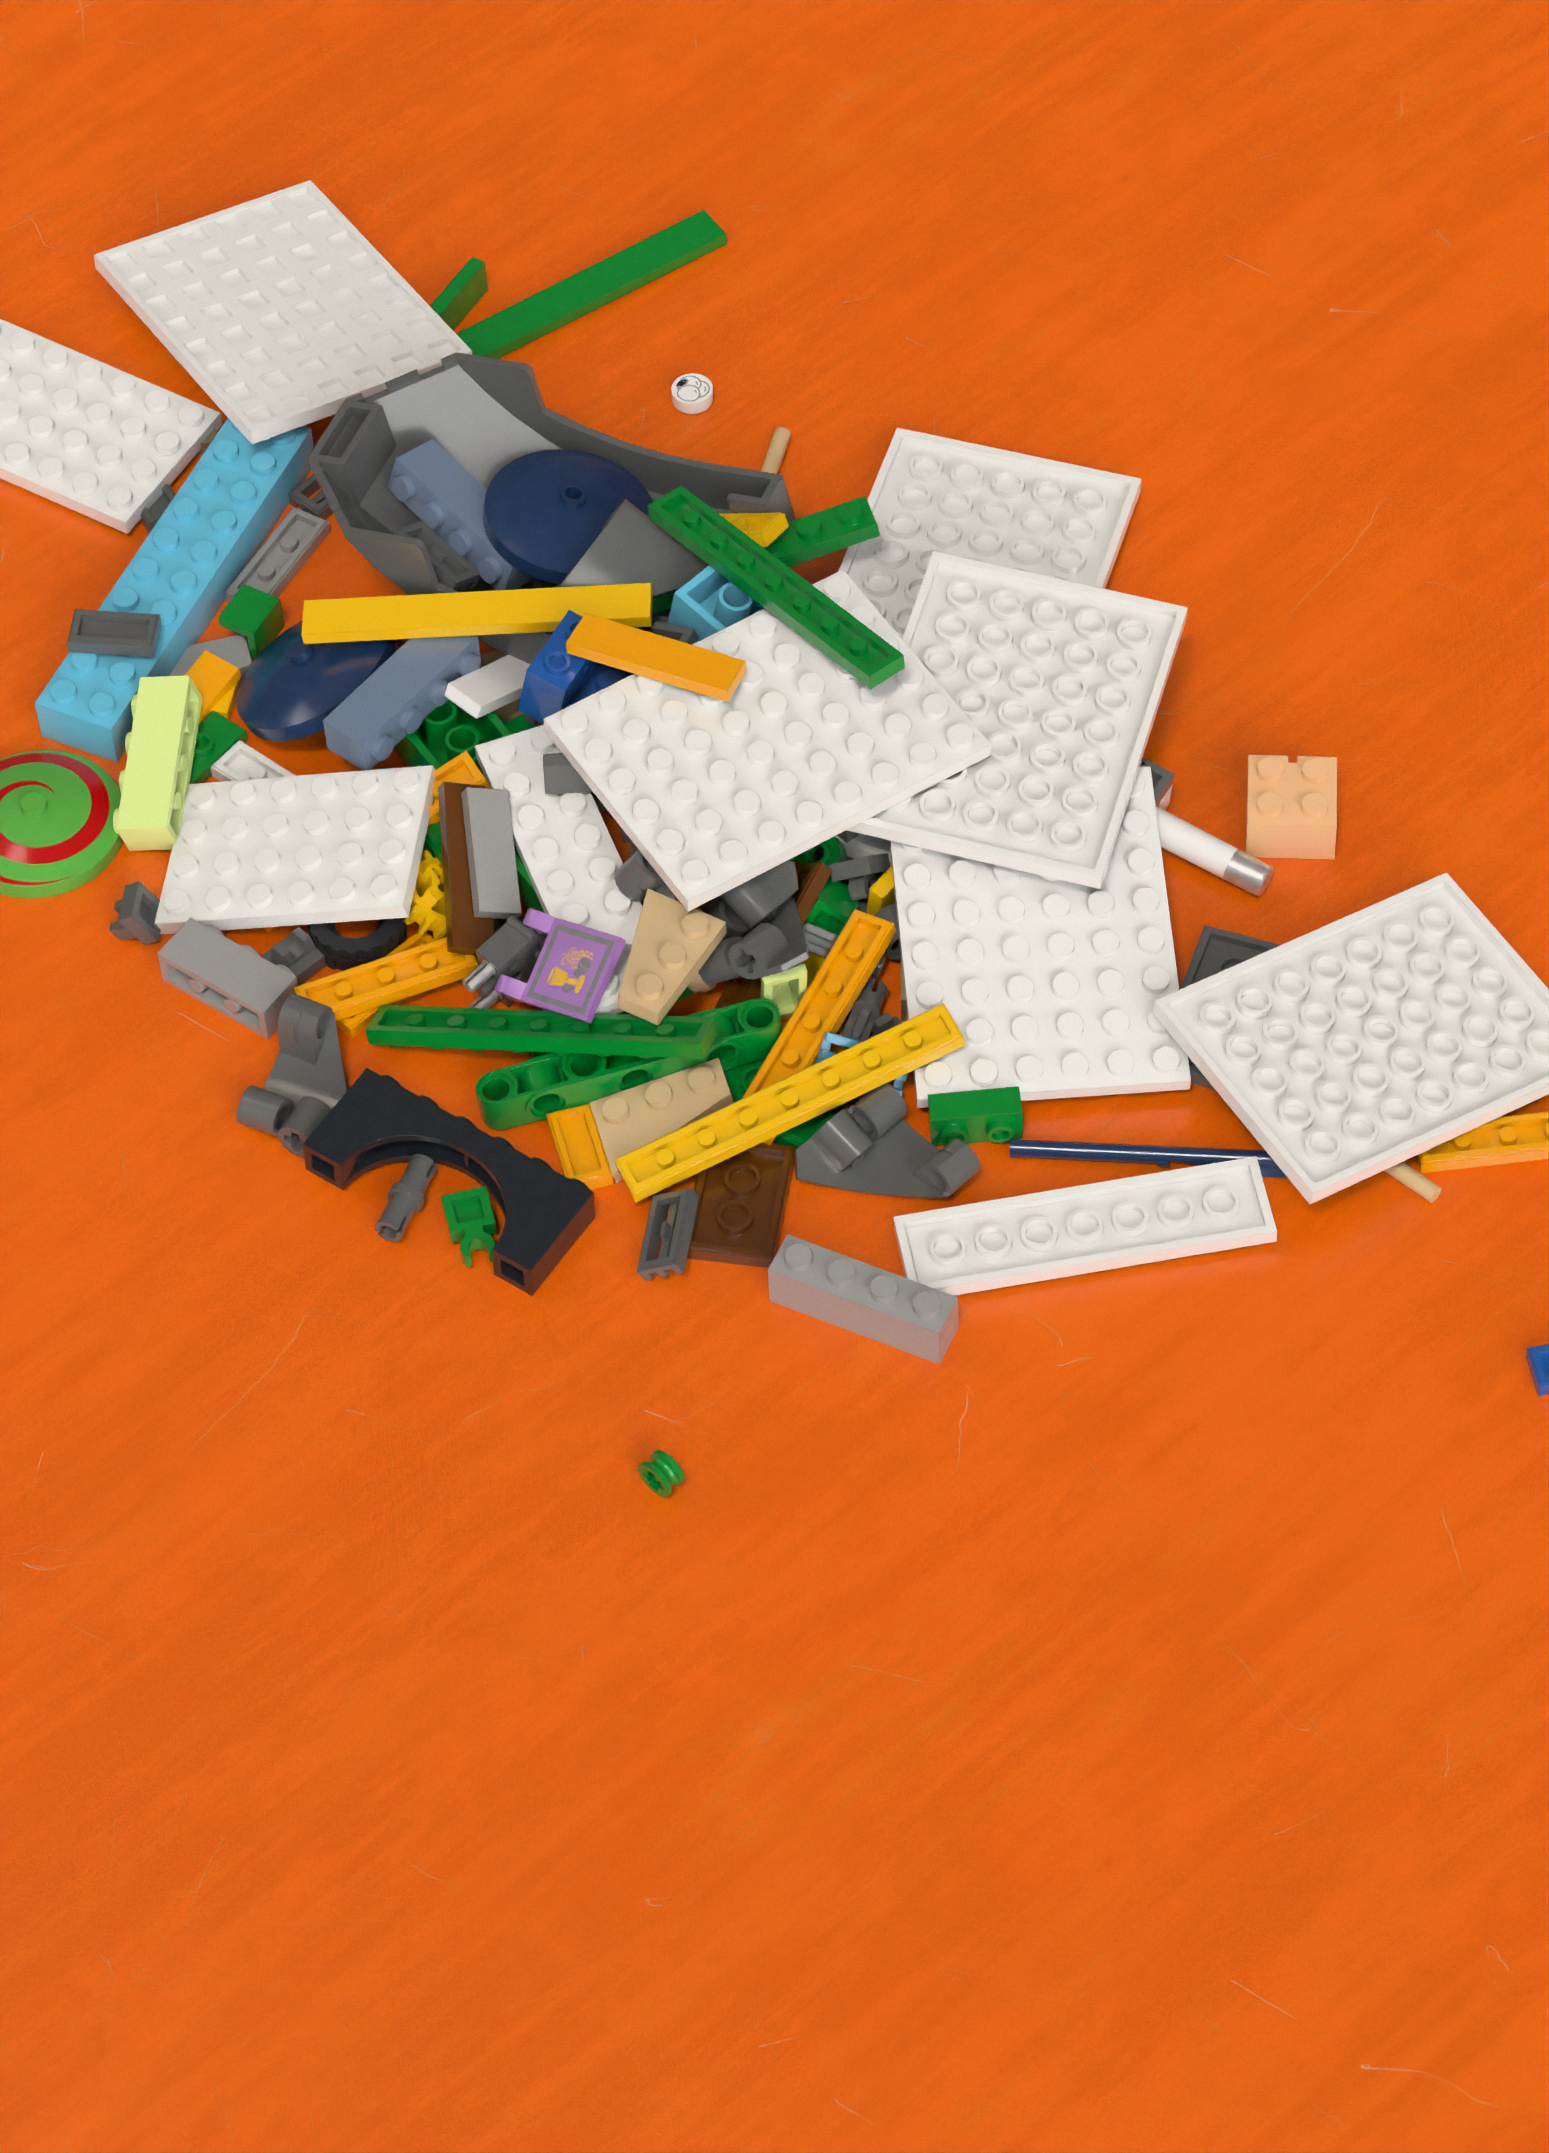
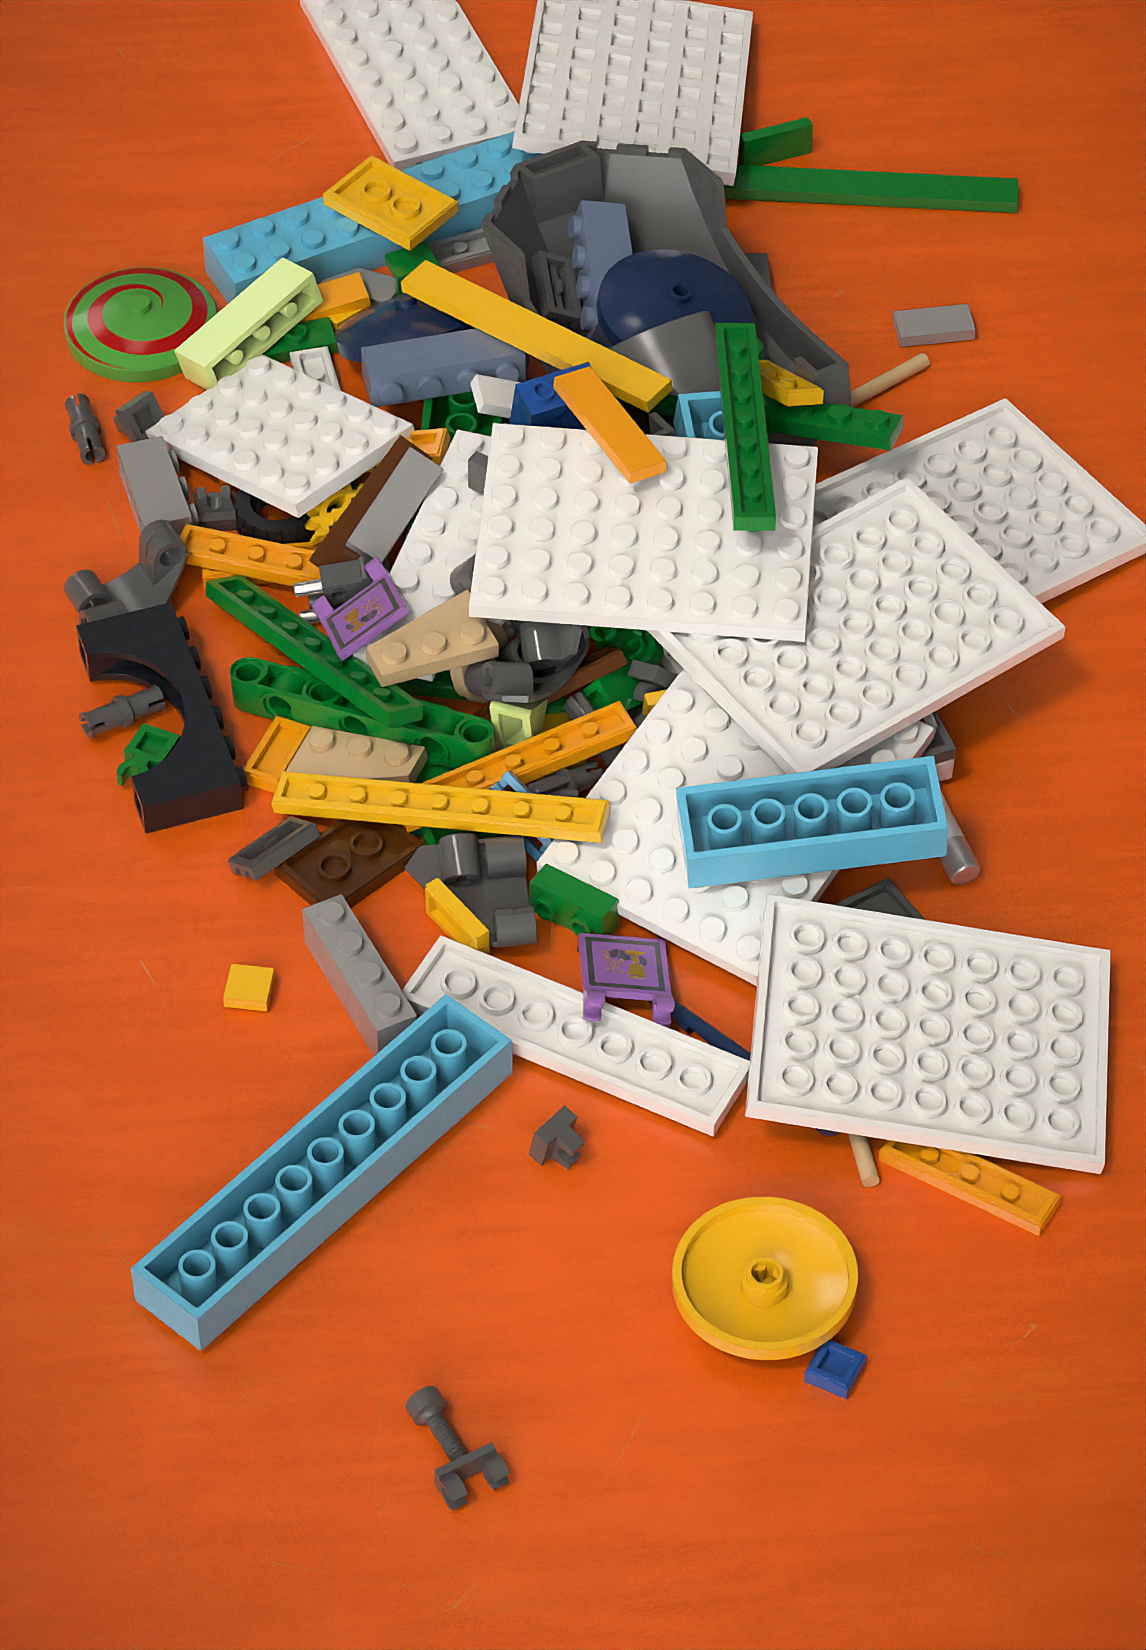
camera: 35 degrees right, 5 degrees down
(93, 956) = (85, 429): none -> dark grey pin
(114, 633) = (295, 219): dark grey tile -> none
(186, 564) = (390, 202): none -> yellow tile
(661, 1473) = (98, 1006): green bush -> none
(692, 393) = (884, 297): white tile -> none
(760, 394) = (933, 325): none -> light grey tile
(768, 1370) = (249, 987): none -> yellow tile
(889, 1193) = (455, 917): none -> yellow tile
(1005, 1485) = (321, 1172): none -> medium azure brick
(1077, 1144) = (624, 970): none -> medium lavender flag
(1139, 913) = (811, 822): none -> medium azure brick
(1163, 1327) = (557, 1140): none -> dark grey tile
(1291, 807) = (1036, 832): light nougat piece -> none
(1359, 1673) = (427, 1408): none -> dark grey bar
(1444, 1329) = (764, 1278): none -> yellow dish

